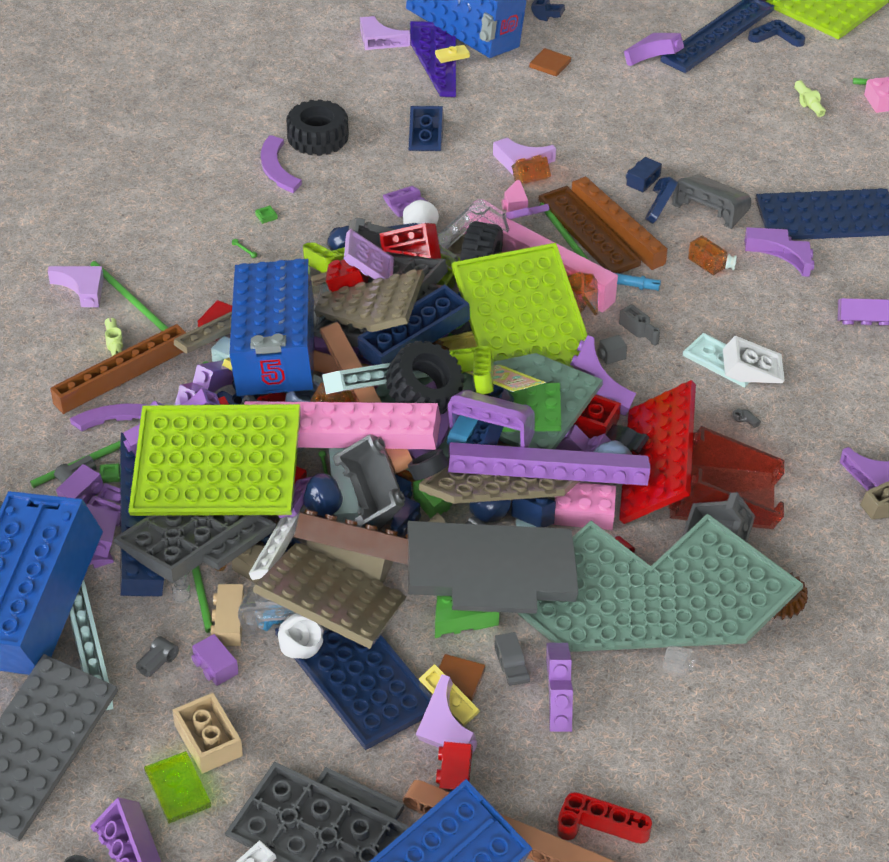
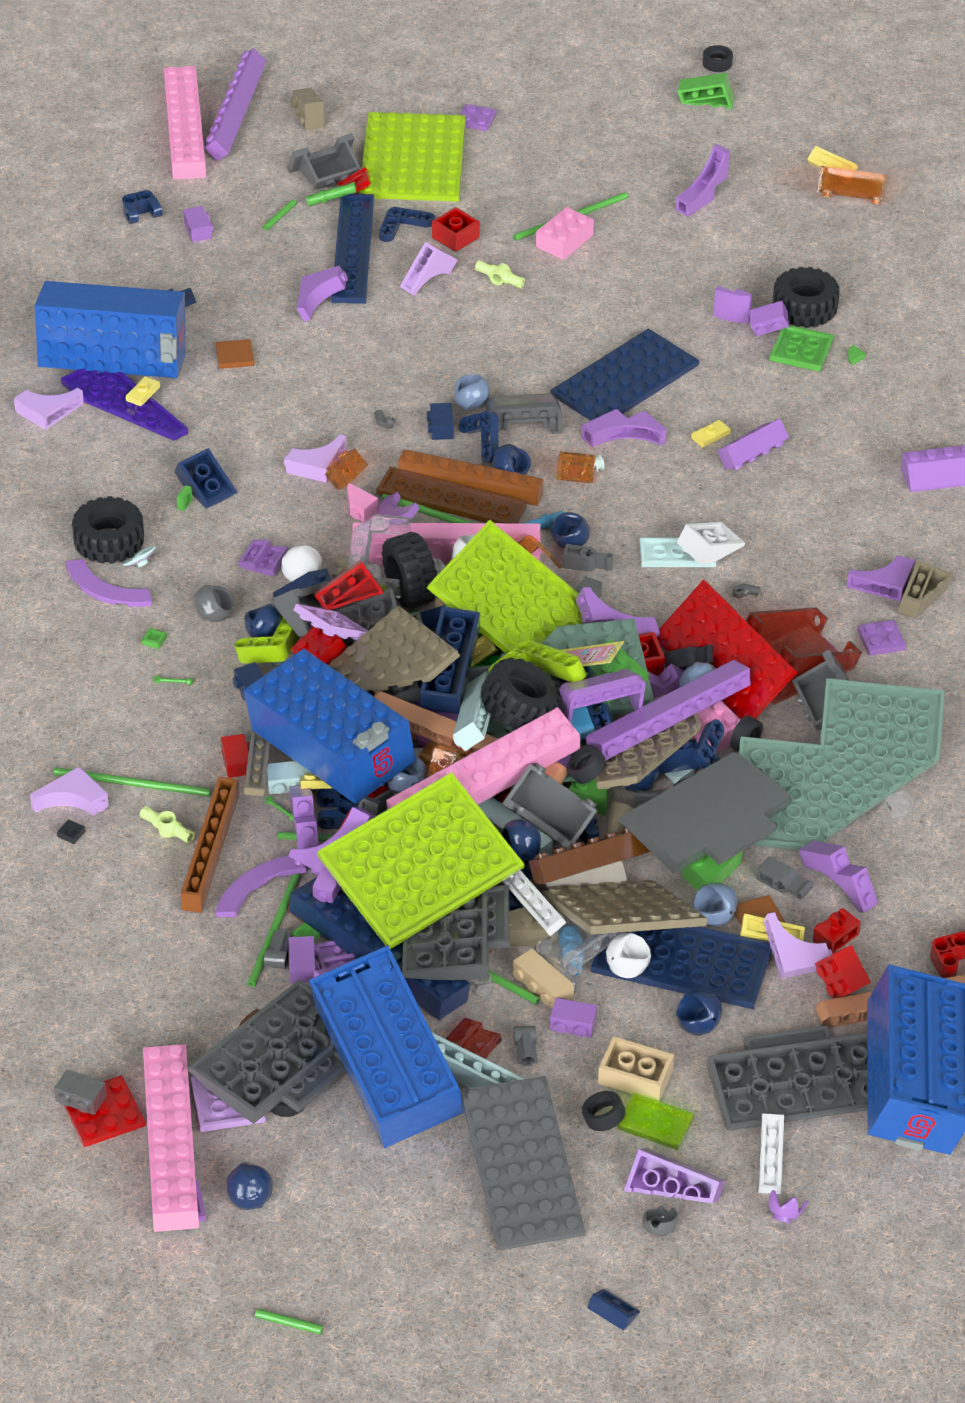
camera: 40 degrees left, 0 degrees up
(52, 308) = (71, 831): none -> black plate
(123, 628) = (472, 1037): none -> clear red slope
(148, 739) = (608, 1120): none -> black tyre
(308, 721) = (699, 1012): none -> dark blue piece
(319, 158) = (140, 557): none -> light aqua dish
(326, 209) = (214, 603): none -> dark grey piece
(397, 134) = (184, 498): none -> bright green tile
(425, 642) = (716, 903): none -> sand blue piece
(504, 730) = (837, 930): none -> red brick
(553, 516) = (703, 752): none -> dark blue beam
(602, 154) = (382, 421): none -> dark grey arm
(612, 514) = (746, 727): none -> black tyre
(647, 295) = (570, 529): none -> dark blue piece
(660, 224) = (511, 459): none -> dark blue piece
(686, 163) = (471, 392): none -> sand blue piece
(756, 64) = (427, 264): none -> lavender arch
(807, 53) = (455, 229): none -> red brick
(823, 518) = (881, 637): none -> medium lavender plate
(853, 287) = (711, 433): none -> light yellow plate

